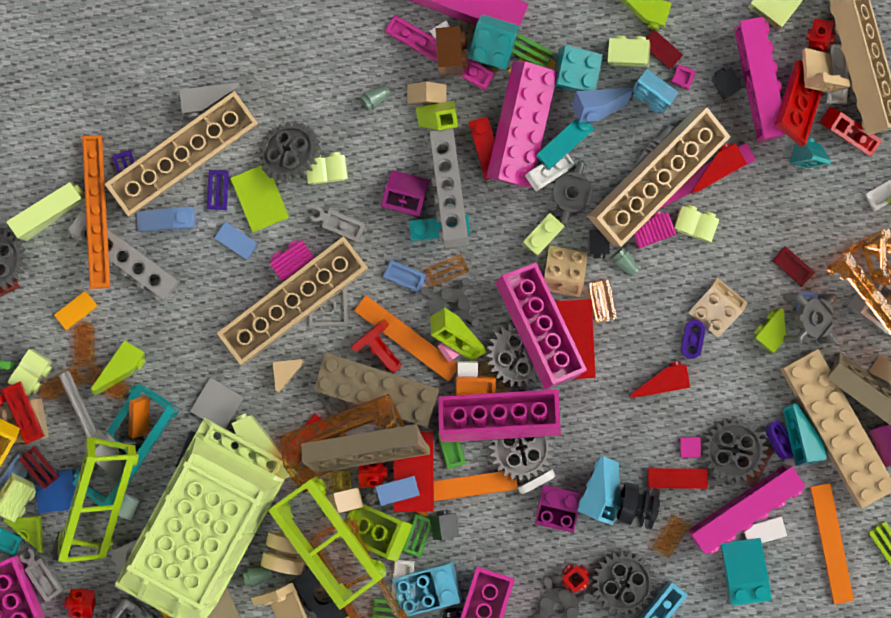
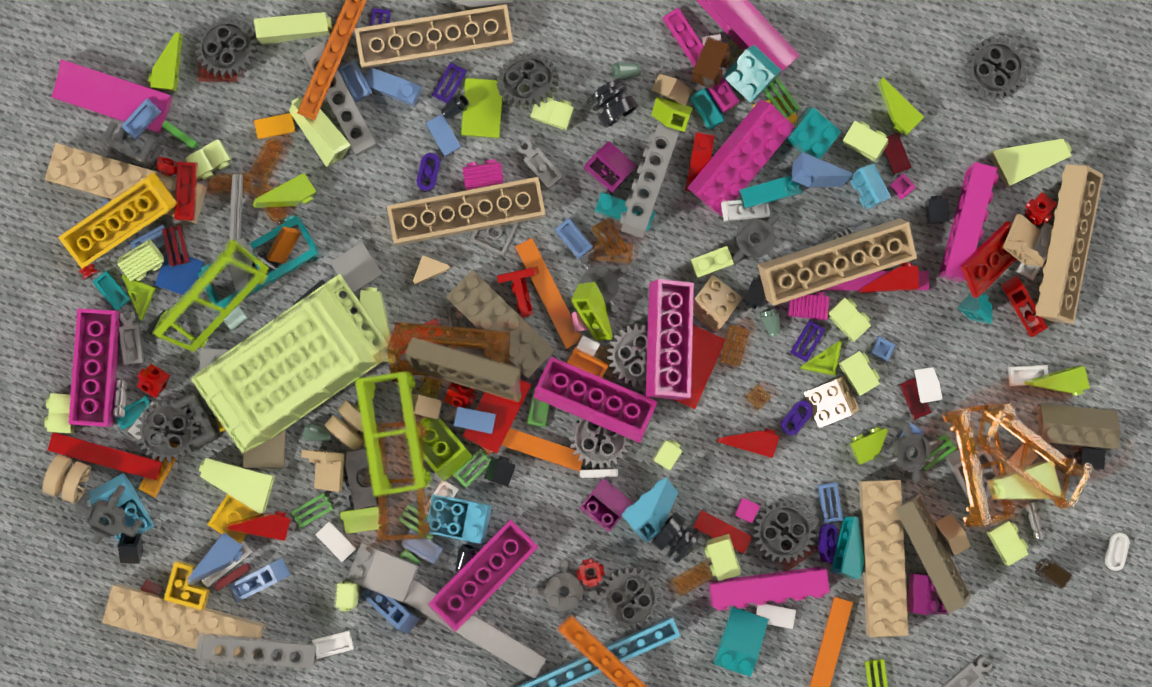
camera: 20 degrees right, 0 degrees up
(124, 297) = (322, 135): none -> yellowish green slope
(129, 231) = (355, 81): none -> medium blue tile
(234, 207) = (455, 106): none -> black cone
(239, 282) = (428, 172): none -> dark purple plate
(377, 133) = (612, 102): none -> black wheel
(451, 268) = (617, 252): none -> clear orange tile
(468, 94) = (707, 108): none -> teal tile
(591, 432) = (668, 454): none -> yellowish green brick
(647, 337) = (757, 397): none -> clear orange tile
(675, 263) = (815, 327): none -> dark purple tile
(690, 502) = (723, 557): none -> yellowish green brick
(693, 274) = (826, 361): none -> lime tile
(730, 269) = (859, 373): none -> yellowish green brick
(740, 235) = (882, 349): none -> medium blue tile
(772, 415) = (822, 502): none -> medium blue tile
(799, 248) = (928, 385): none -> white sticker
(849, 297) = (940, 457): none -> bright green tile

